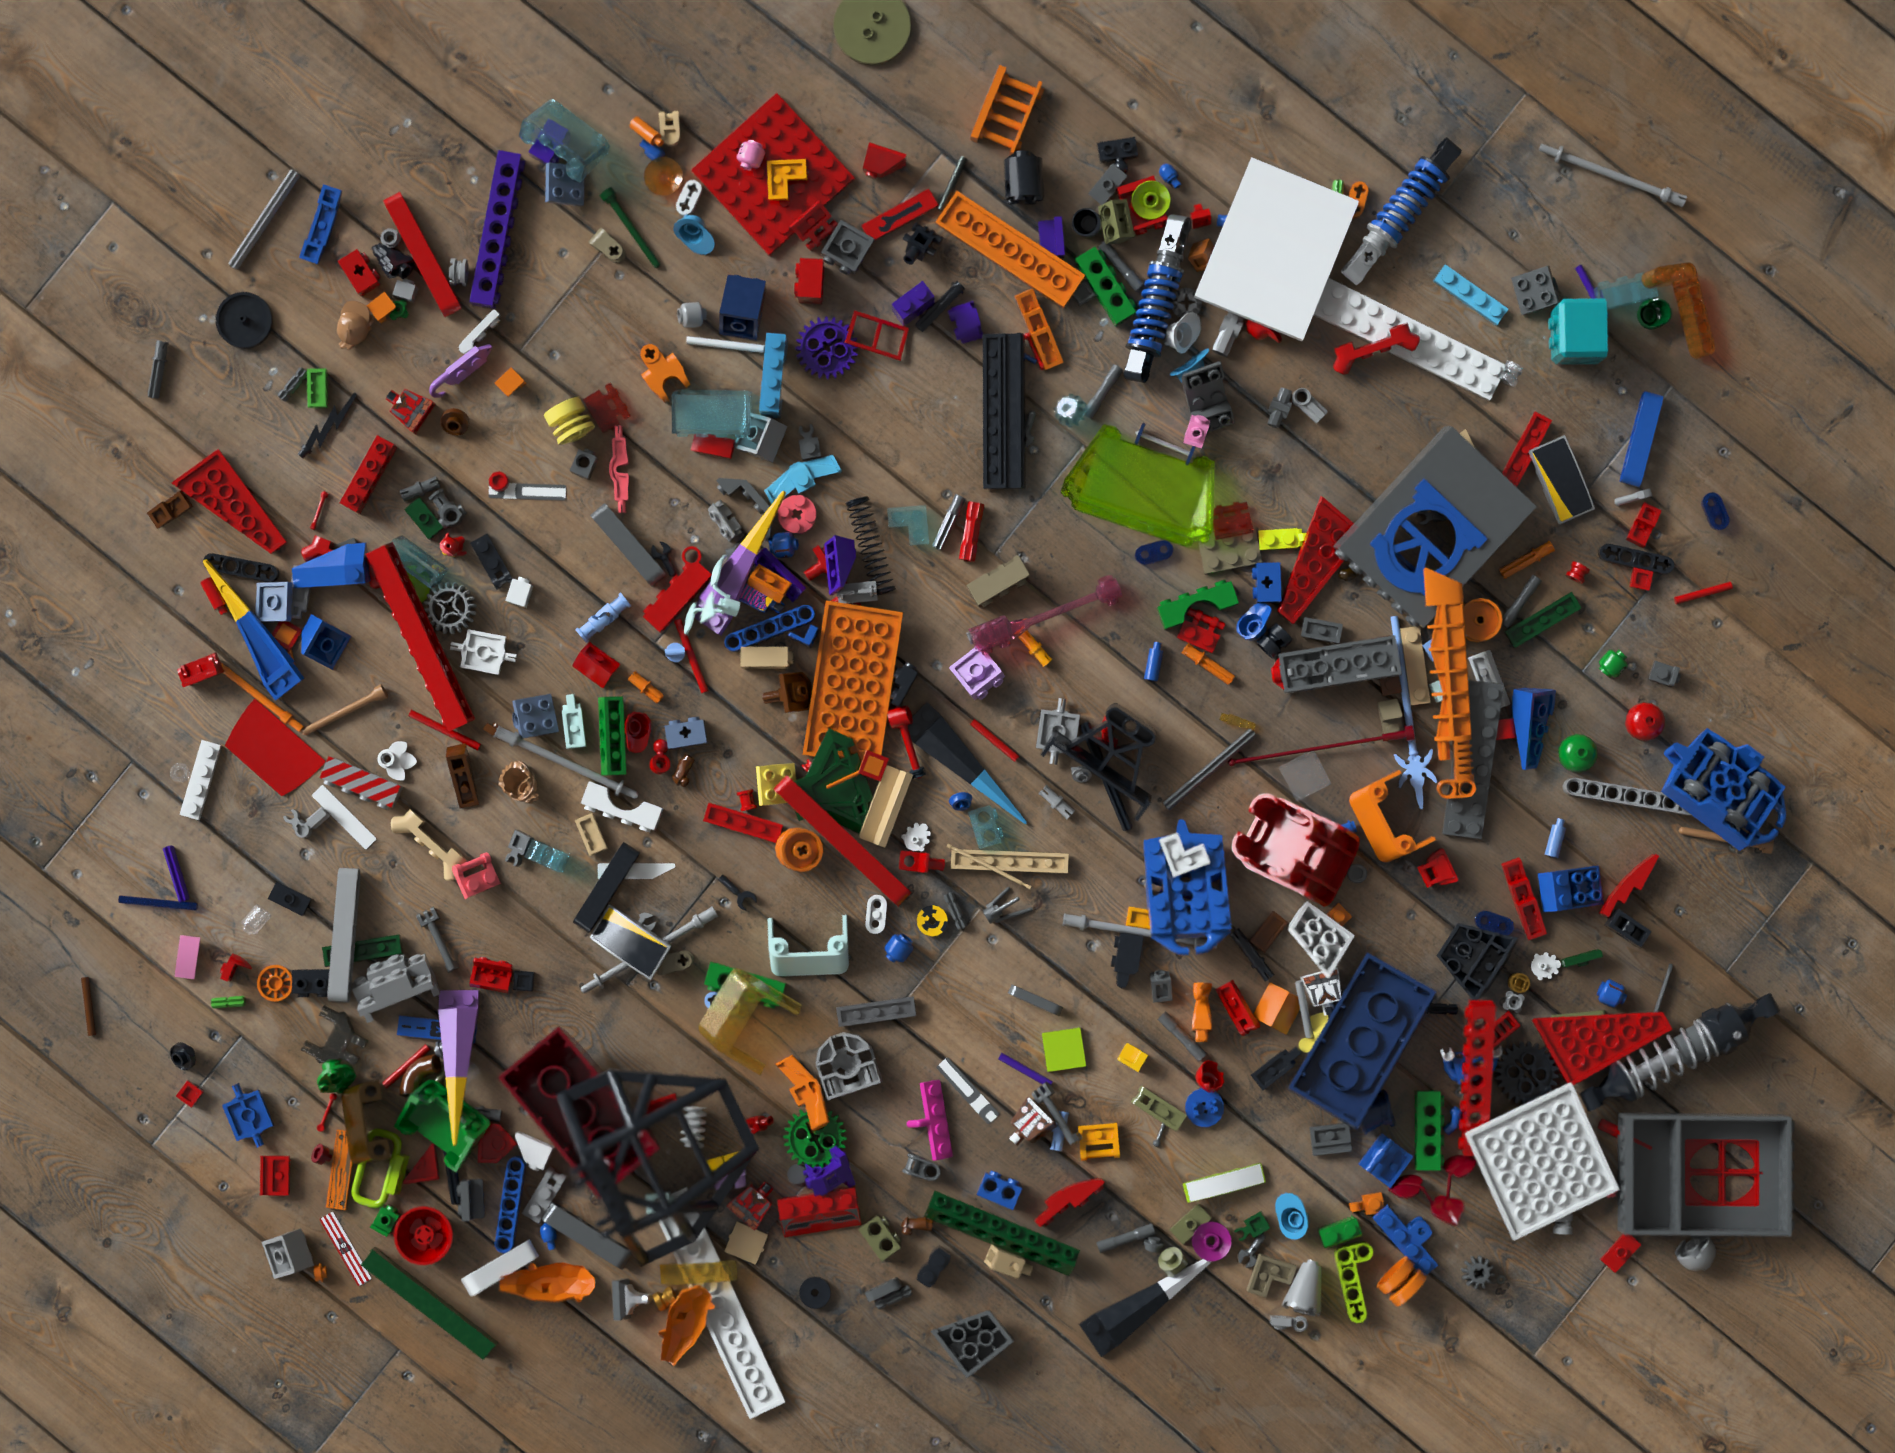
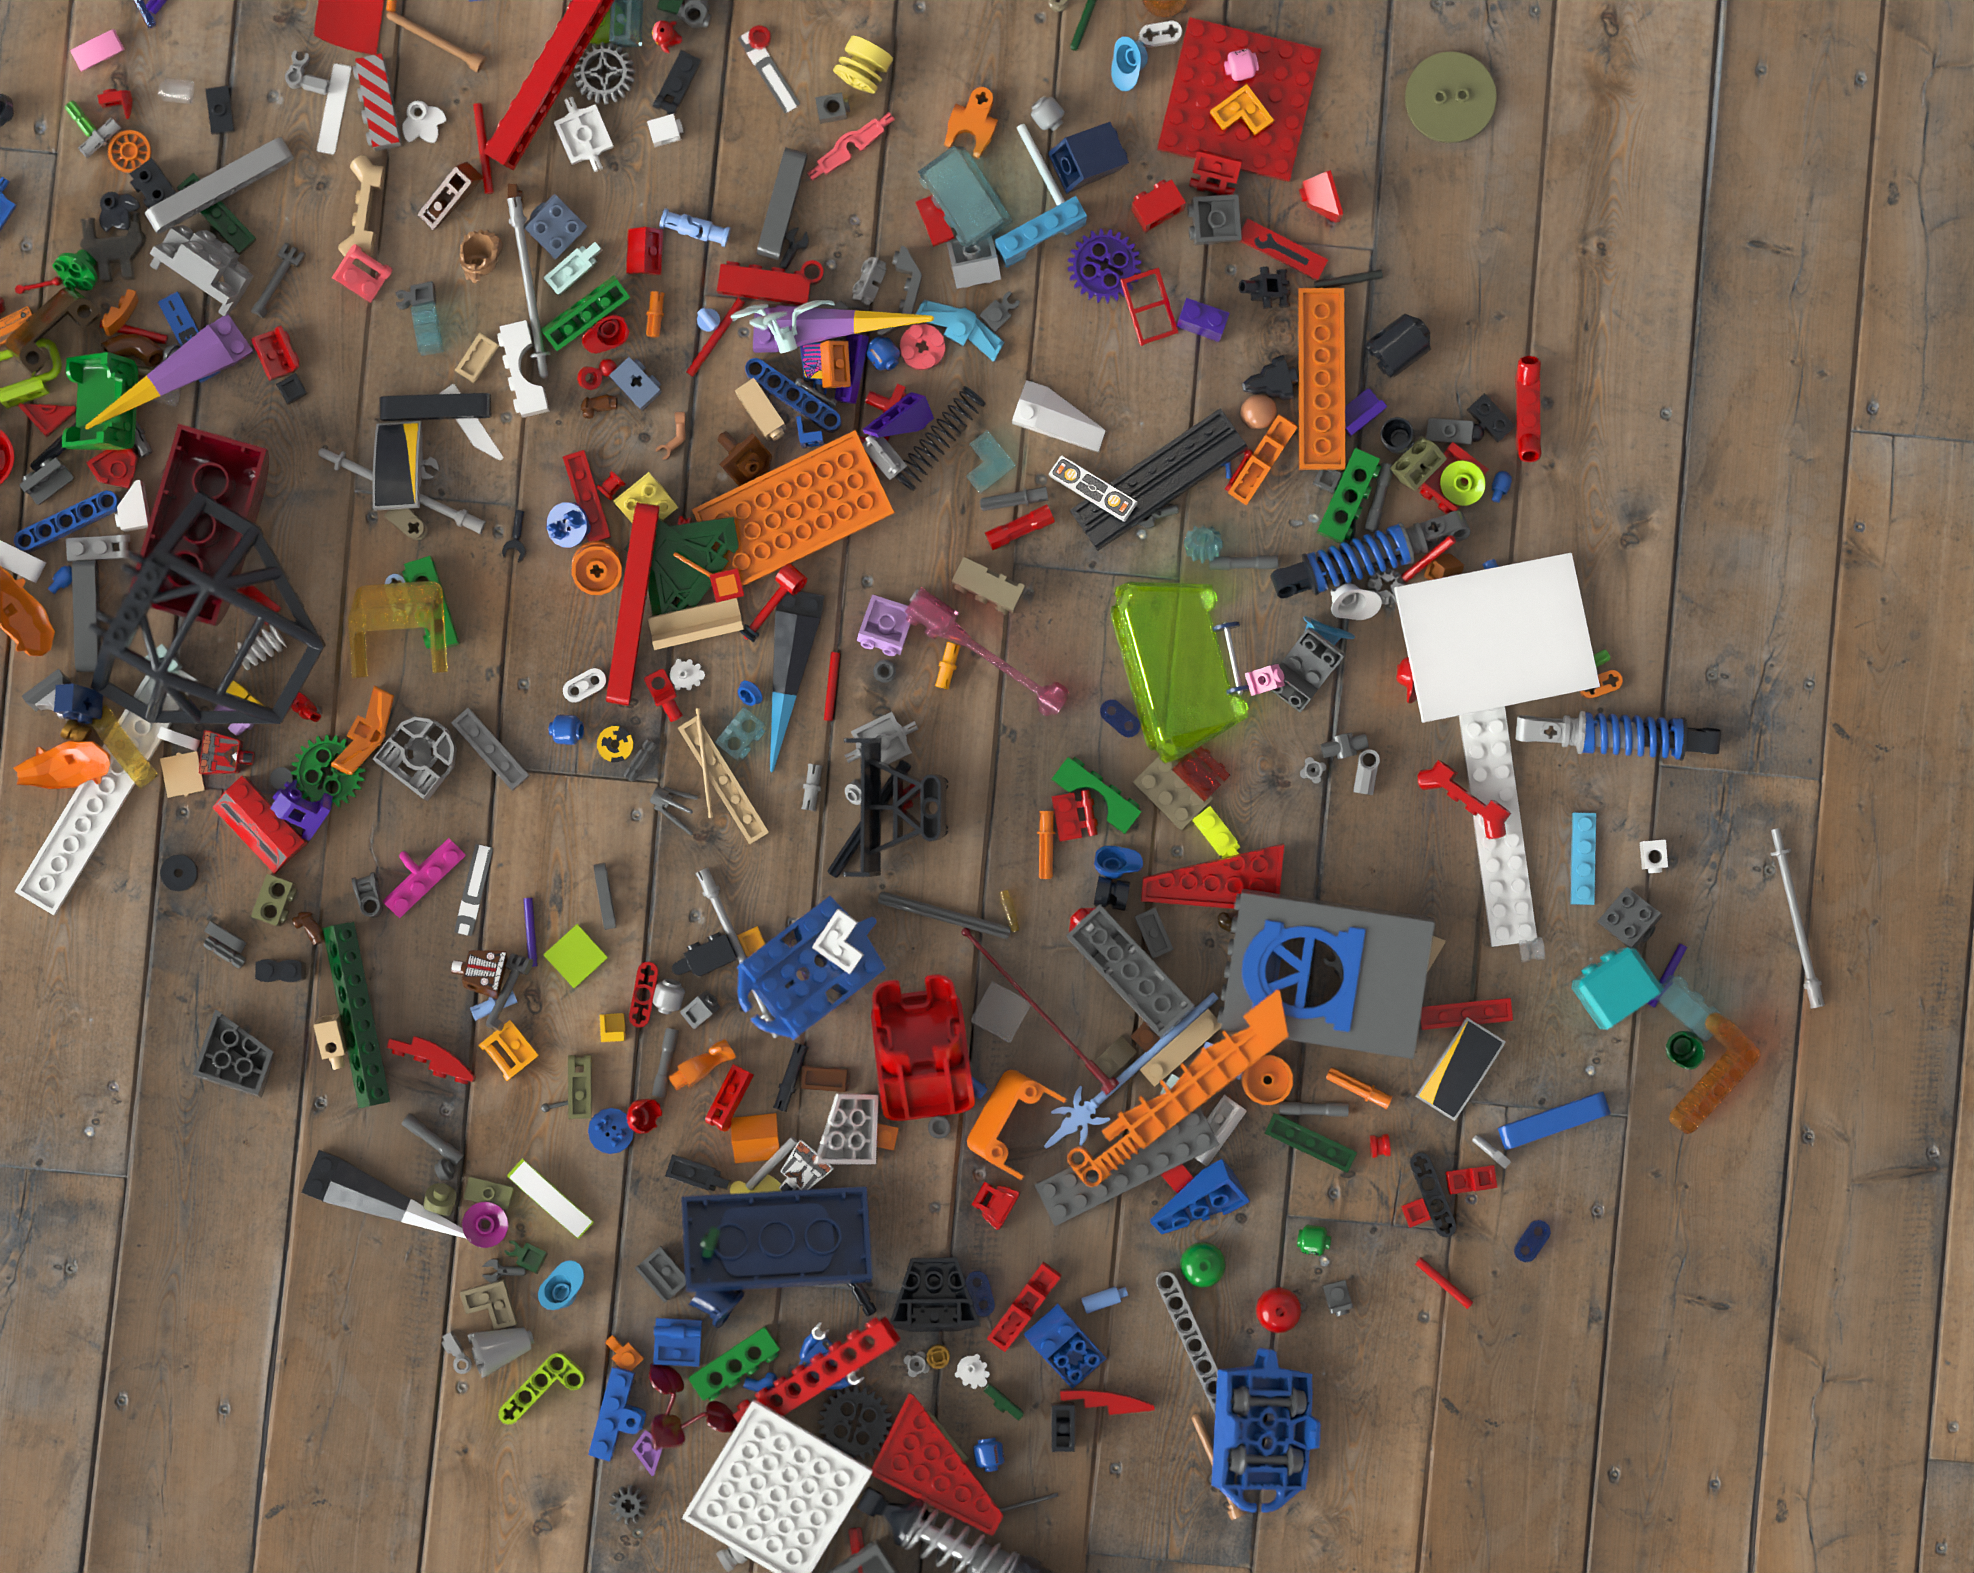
camera: 55 degrees right, 0 degrees up
(251, 997) = (99, 137): none -> light grey pin
(313, 1020) = (118, 212): none -> black plate
(389, 1070) = (119, 316): none -> orange slope
(601, 410) = (895, 89): clear red plate -> none
(646, 1283) = (78, 703): none -> dark blue brick
(719, 1228) = (178, 738): none -> white beam
(744, 727) = (680, 435): none -> nougat arm
(754, 840) = (575, 519): none -> plate
(794, 604) = (830, 402): none -> dark grey hinge
(809, 963) = (509, 674): light aqua windscreen -> none
(904, 678) = (832, 559): black plate -> none
(908, 455) = (1051, 415): none -> white wedge
(947, 298) = (1219, 348): black axle -> none
(967, 322) = (1221, 385): dark purple cylinder -> none
(979, 461) = (1093, 488): none -> tile
(987, 113) = (1462, 263): orange fence -> none
(988, 283) = (1274, 380): none -> black rock
(997, 1194) = (390, 986): blue brick -> none
(1003, 309) = (1258, 411): none -> nougat hair
(1004, 690) = (879, 665): none -> dark grey plate
(1129, 119) = (1528, 409): none -> red plate
(1137, 1002) = (668, 996): none -> light grey head
(1137, 1026) = (641, 976): none -> red beam
(1154, 662) = (1011, 790): blue cylinder -> none
(1188, 259) = (1428, 558): none -> red bar
(1200, 217) = (1479, 543): red tile -> none
(1228, 332) = (1384, 646): light grey piece -> none
(1273, 574) = (1157, 860): blue brick -> none
(1286, 441) = (1309, 764): none -> light grey plate
(1336, 1088) = (710, 1241): none -> dark green plate
(1339, 1231) = (577, 1343): green brick -> none
(1401, 1281) = (568, 1434): orange wheel -> none
(1448, 1233) = (646, 1452): none -> medium lavender piece
(1493, 244) = (1659, 846): none -> white brick
(1502, 1036) = (896, 1376): red slope -> none

